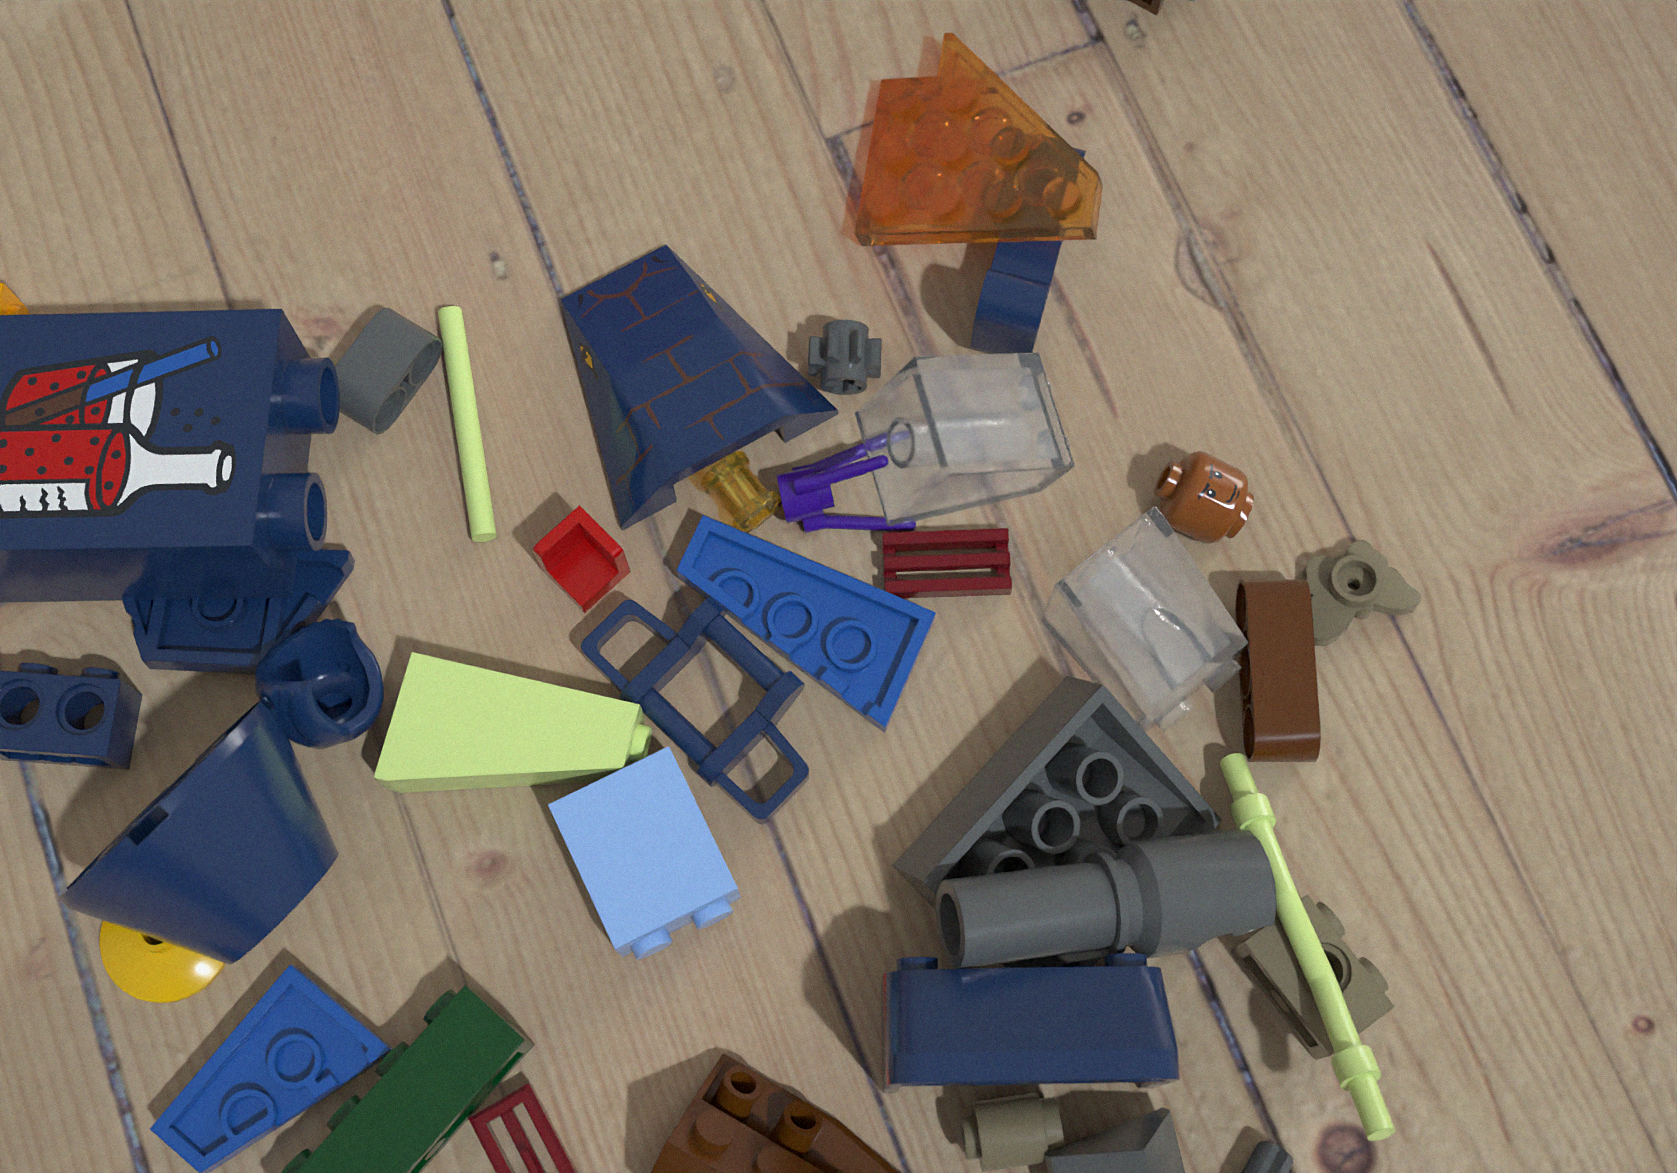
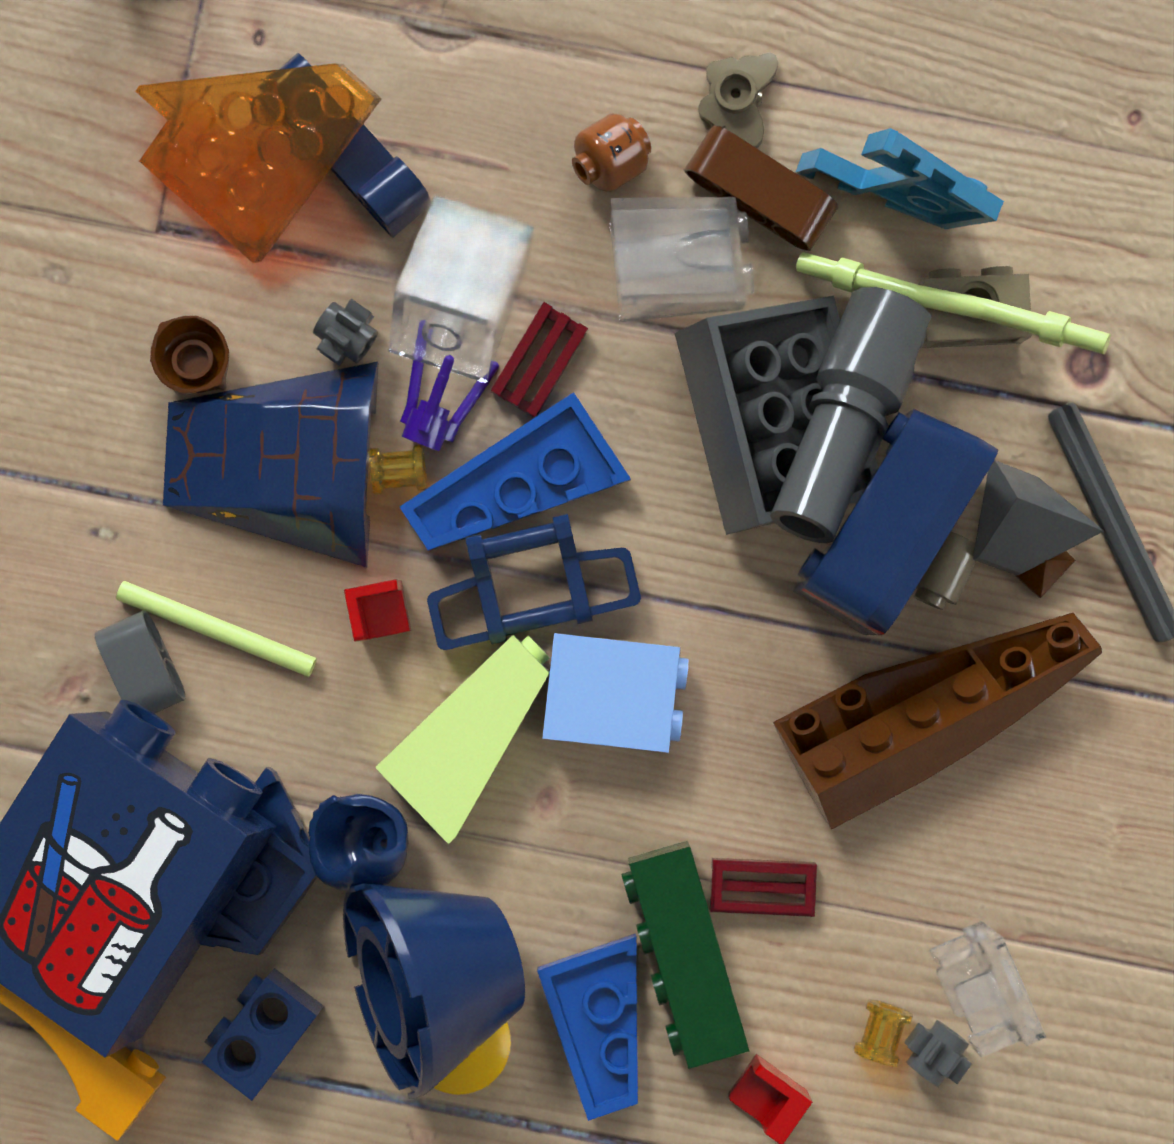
camera: 60 degrees left, 15 degrees up
(724, 232) = (190, 355): none -> reddish brown hat
(1400, 809) = (909, 181): none -> dark azure wing

